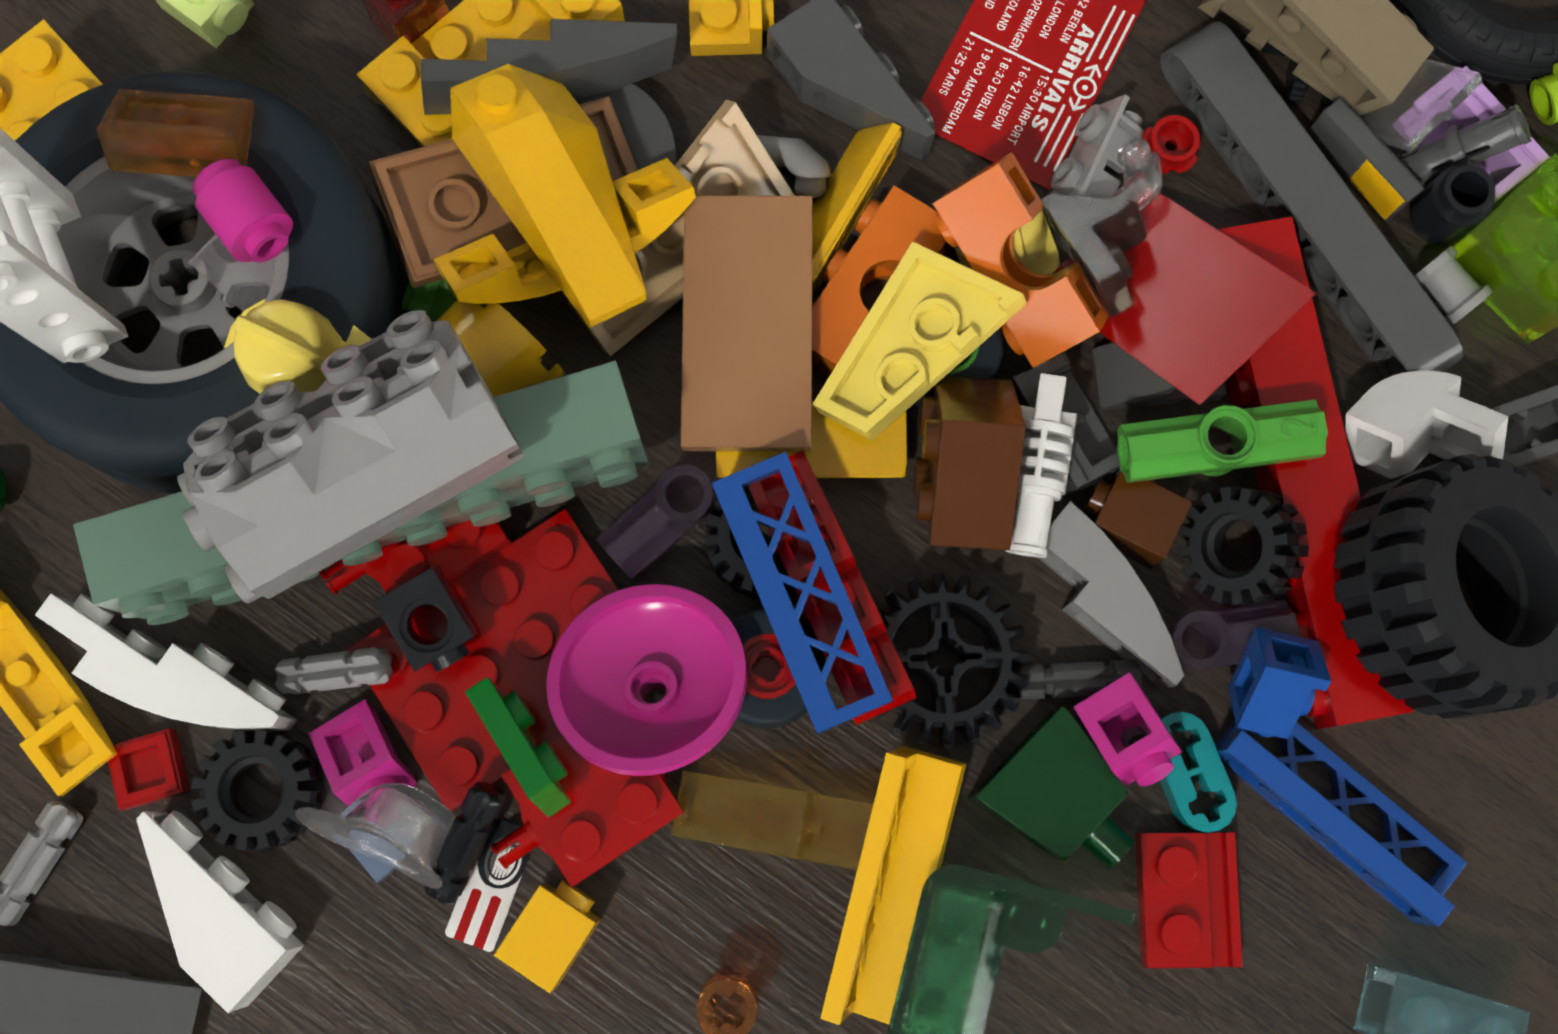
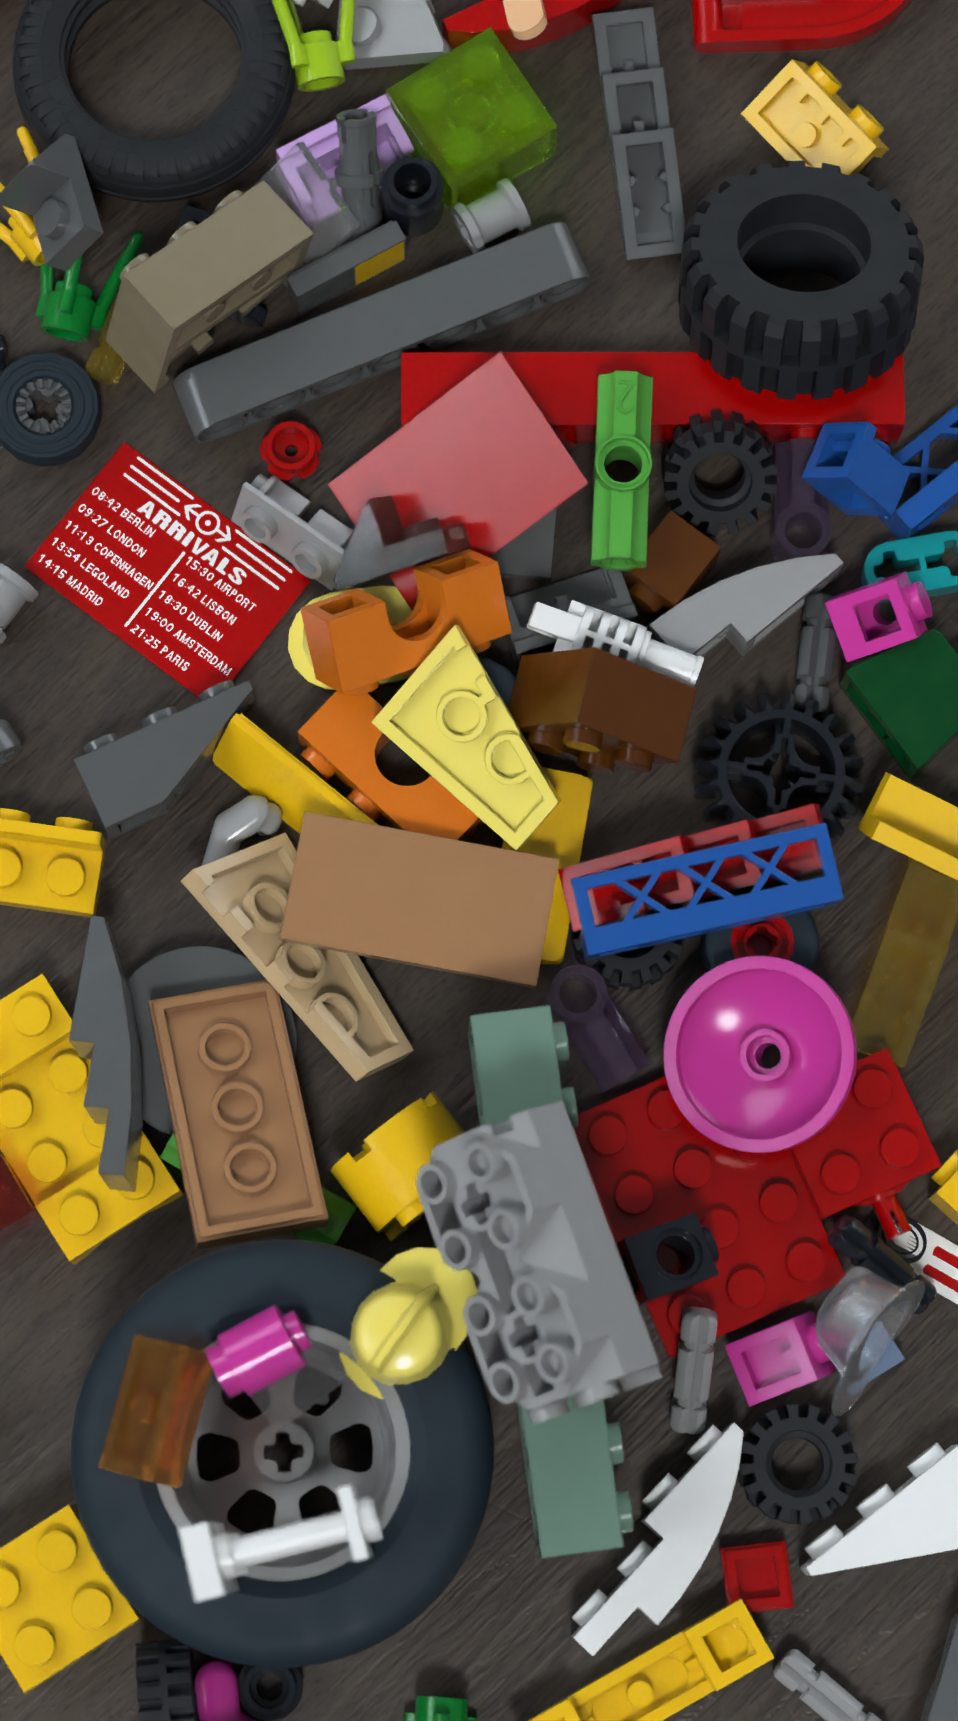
camera: 80 degrees left, 0 degrees up
(490, 275) = (317, 1052): yellow slope -> none
(534, 766) = (829, 1171): green plate -> none
(552, 182) = (255, 1060): yellow wedge -> none
(1141, 174) = (326, 488): clear arm -> none
(1416, 416) = (620, 282): white brick -> none

